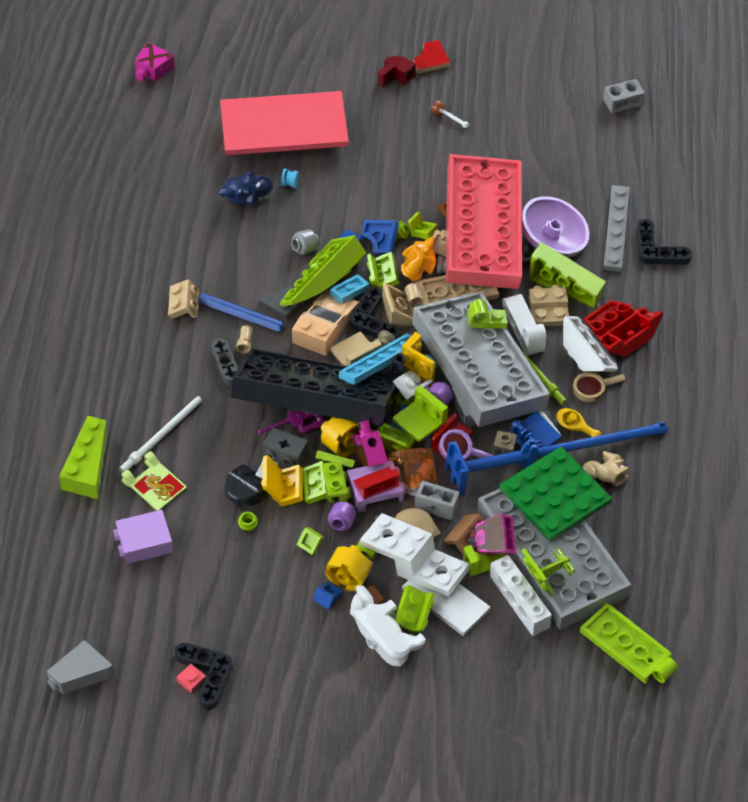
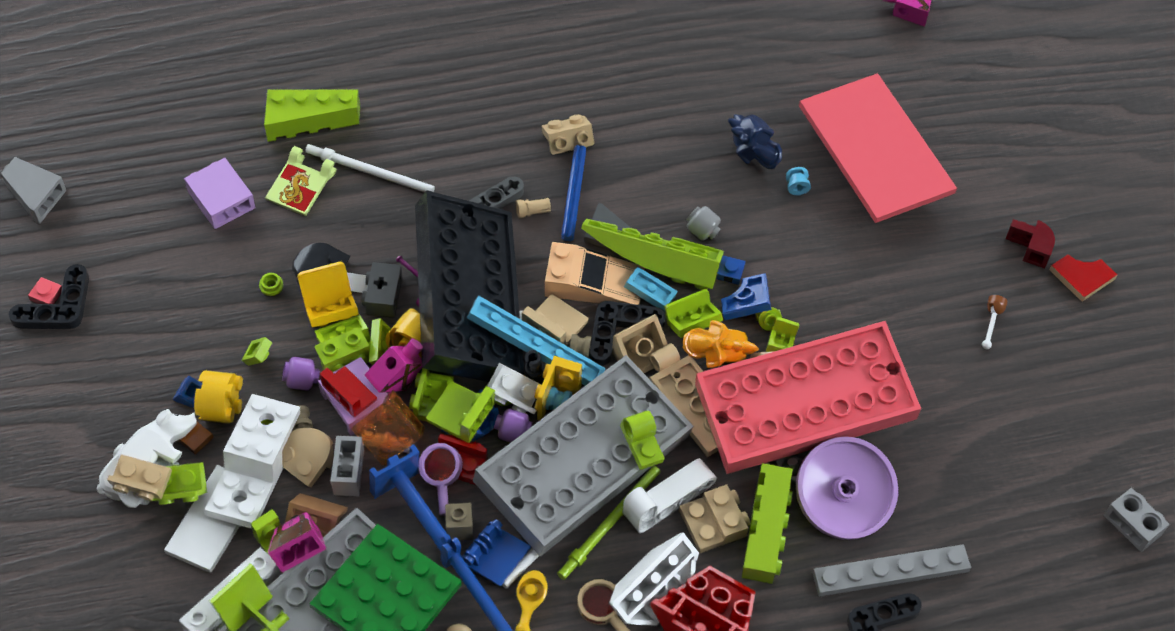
camera: 70 degrees right, 5 degrees up
(407, 624) = (140, 477): none -> tan bracket

